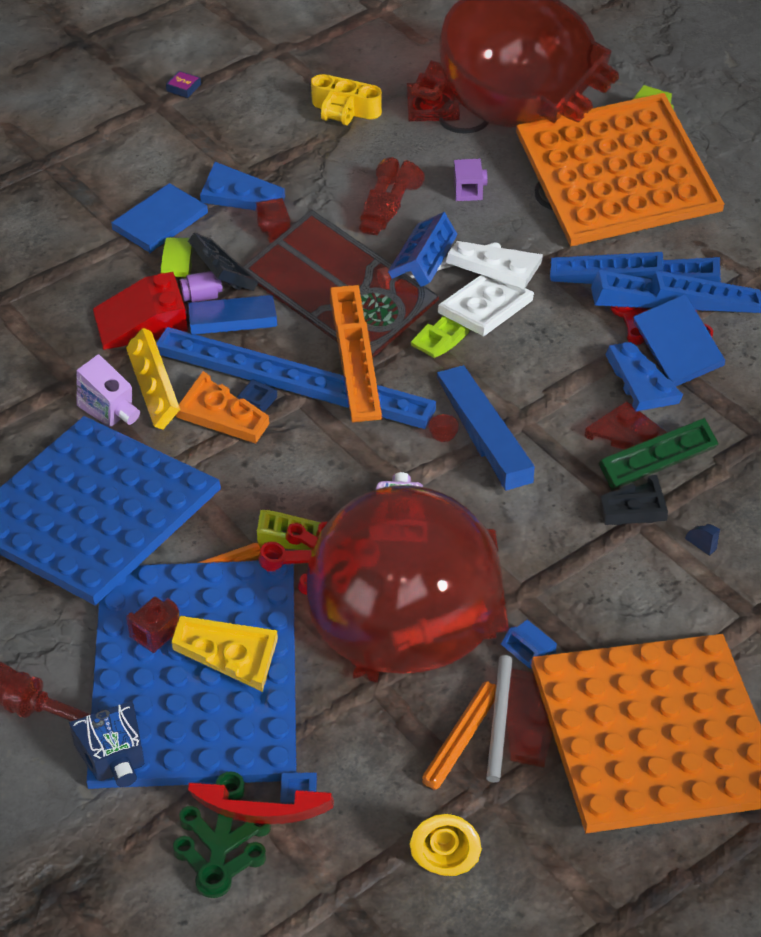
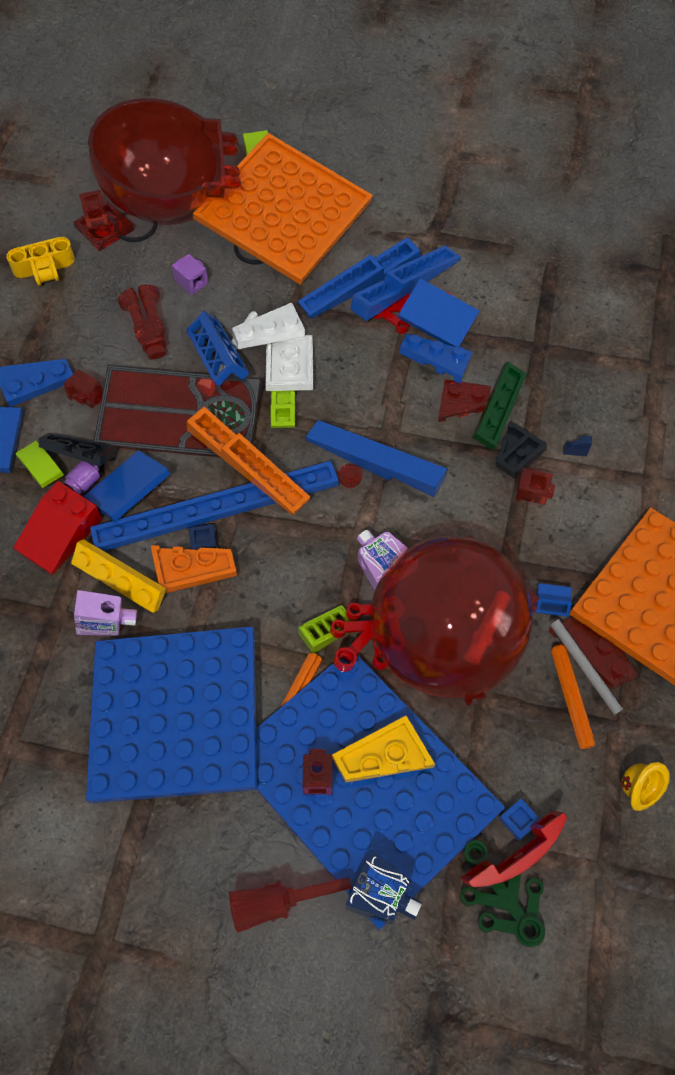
camera: 40 degrees left, 15 degrees up
(615, 540) = (535, 486): none -> clear red brick

